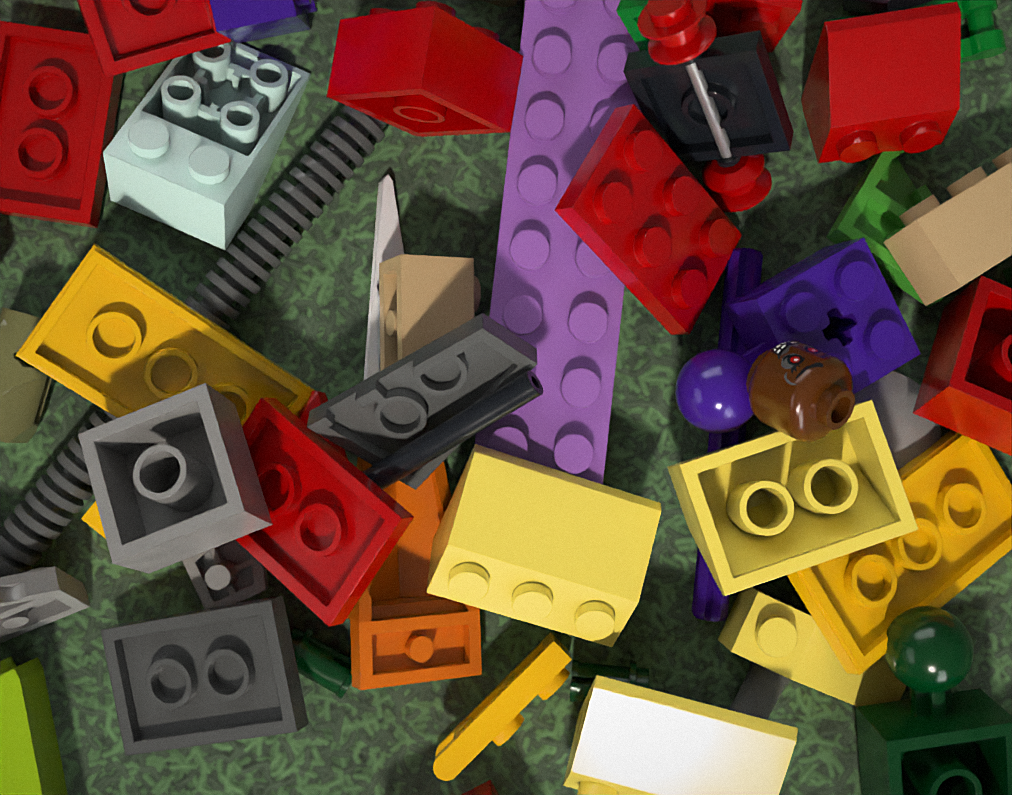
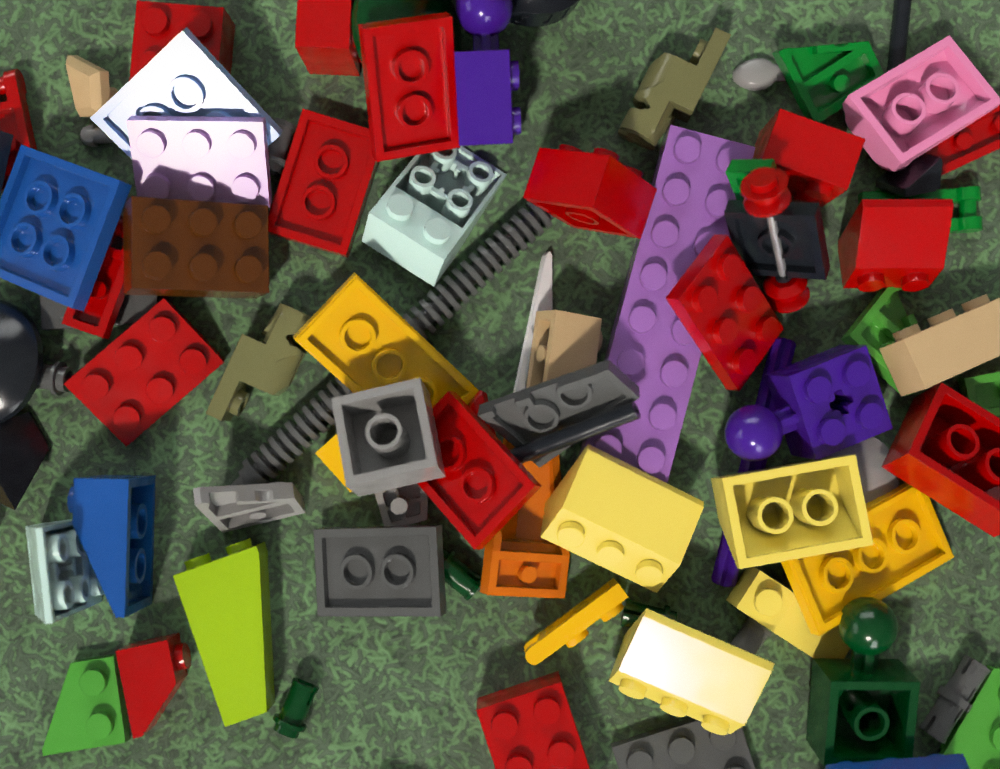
camera: 10 degrees right, 0 degrees up
(800, 390) = (809, 441): reddish brown head -> none

